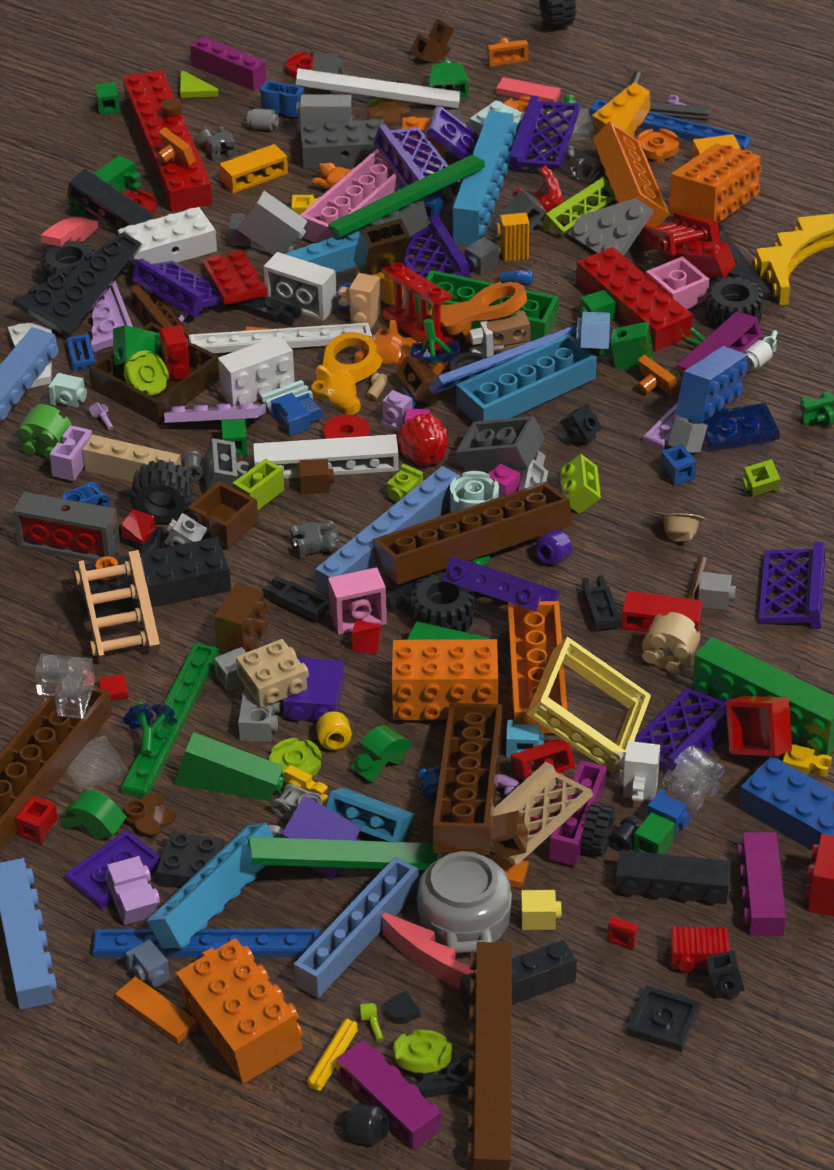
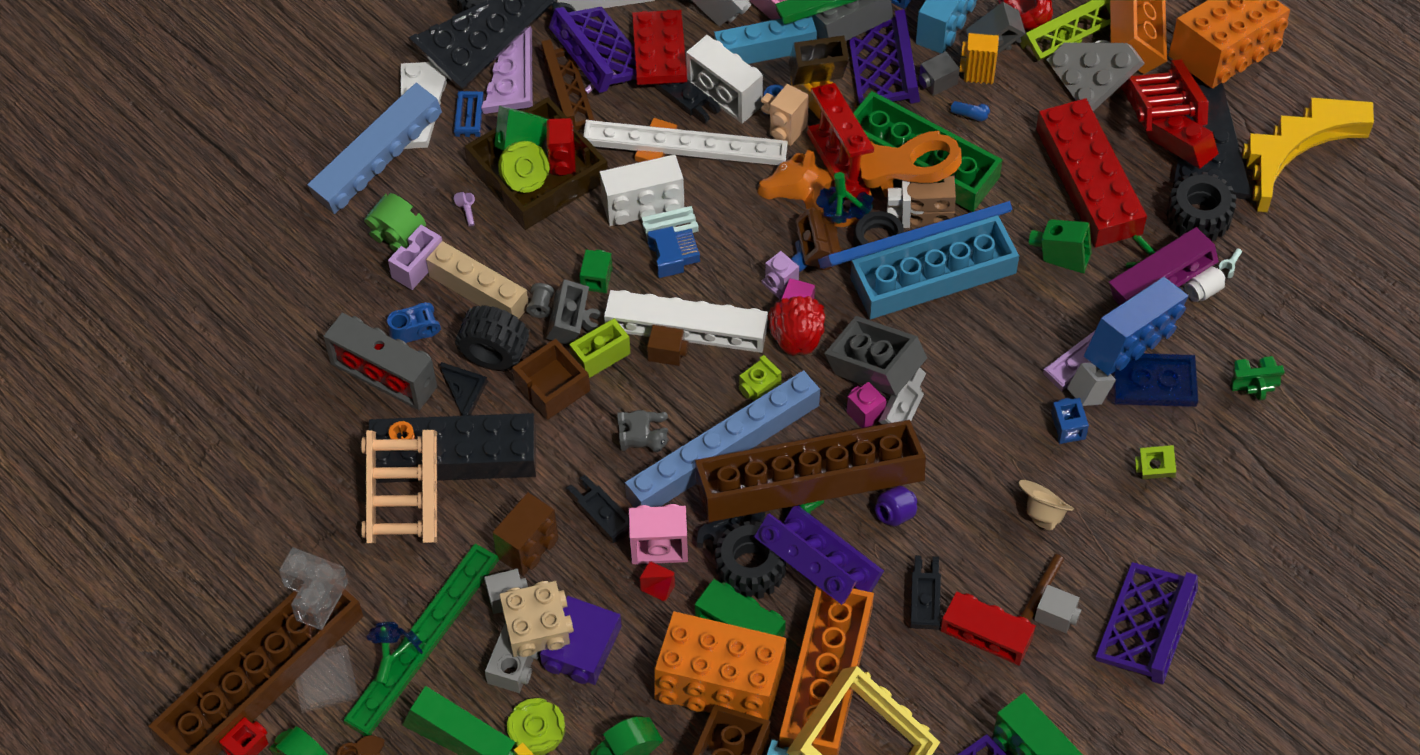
camera: 15 degrees right, 15 degrees up
(67, 390) = (437, 166): light aqua brick -> none
(115, 685) = (374, 582): red tile -> none
(138, 526) = (457, 375): red slope -> none
(184, 531) = (503, 395): light grey brick -> none
(220, 412) = (589, 235): lavender wing -> none
(333, 731) = (585, 702): yellow head -> none
(337, 381) = (729, 216): light orange animal -> none
(346, 423) = (724, 276): red tile -> none
(379, 382) = (771, 234): tan arm -> none
(472, 489) = (827, 413): light aqua brick -> none
(580, 483) = (950, 425): lime brick -> none
(581, 425) = (977, 342): black brick -> none
(594, 330) = (1027, 217): light blue brick -> none
(598, 302) = (1045, 176): green brick -> none
(656, 376) = (1082, 290): orange tile -> none
(670, 642) = (983, 675): tan brick -> none
(681, 281) = (1147, 164): bright pink brick -> none

